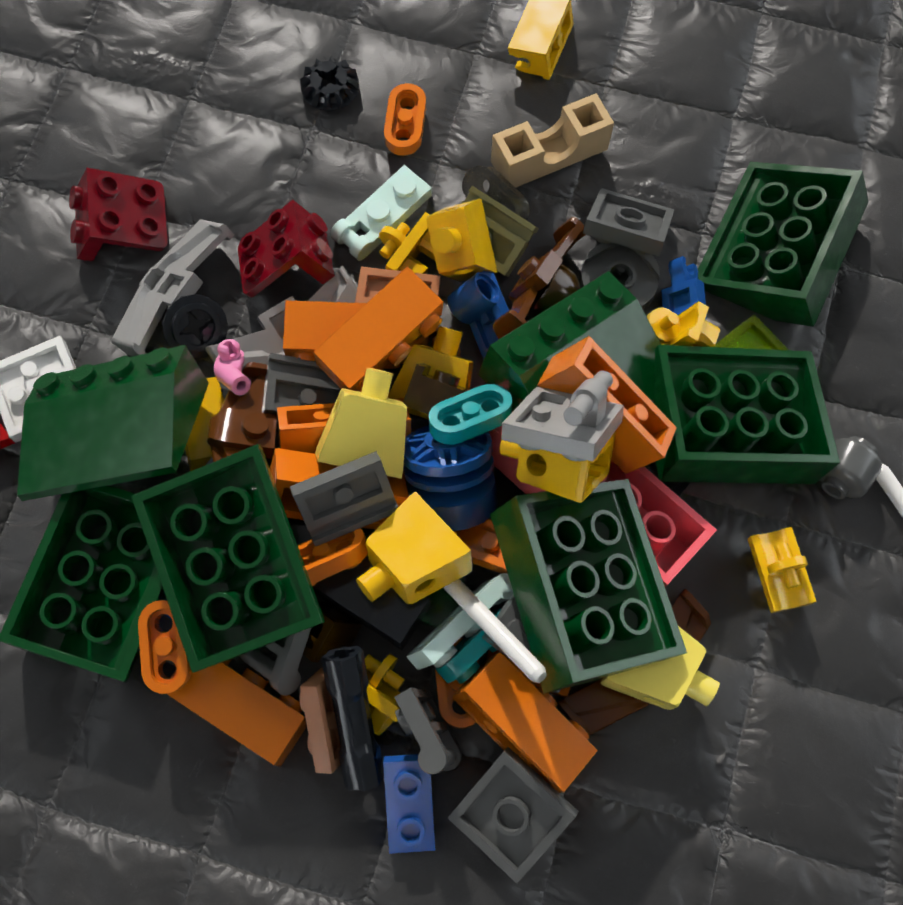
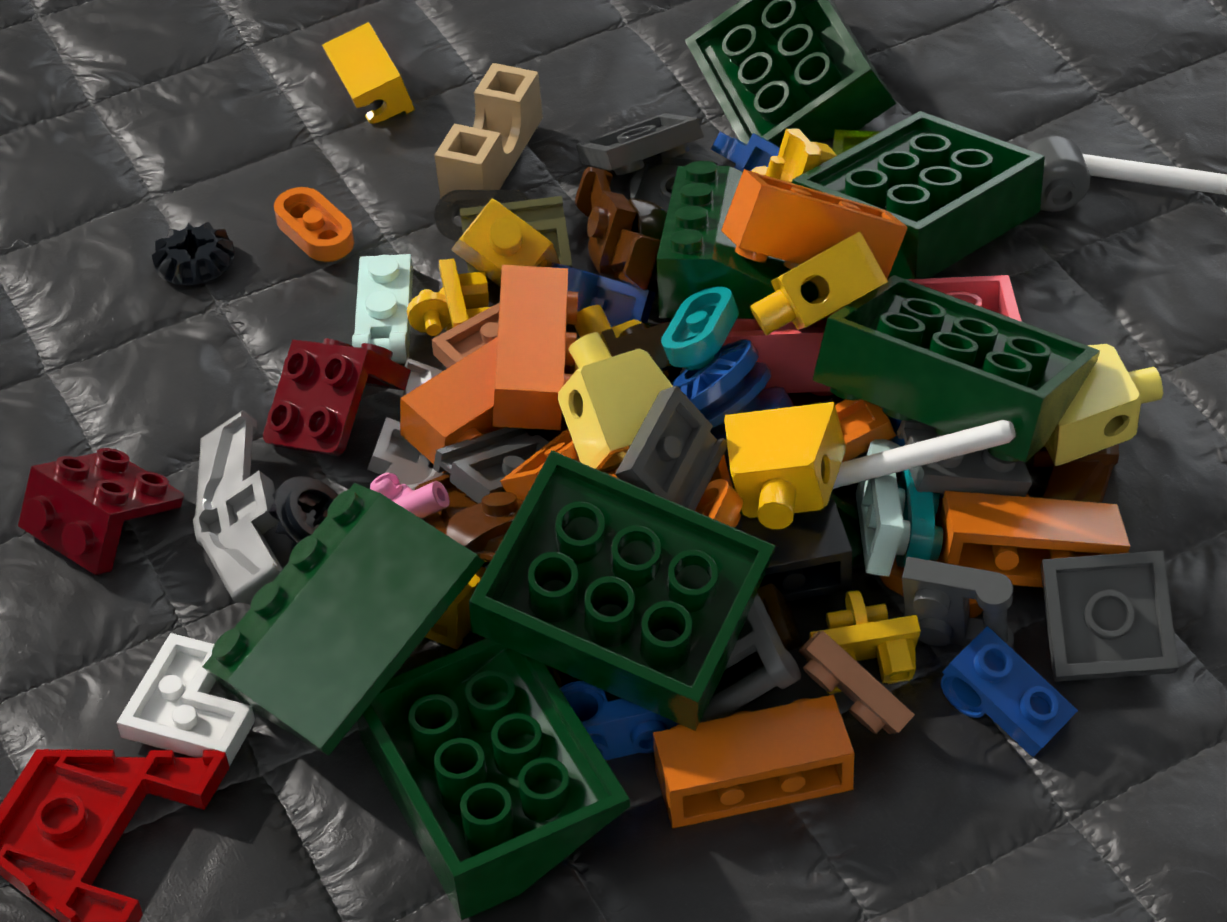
camera: 40 degrees left, 25 degrees down
(158, 647) = (641, 733): orange plate -> none
(347, 684) = (880, 652): black axle -> none
(566, 422) = (824, 219): light grey plate -> none
(781, 570) = (1096, 275): yellow hips -> none

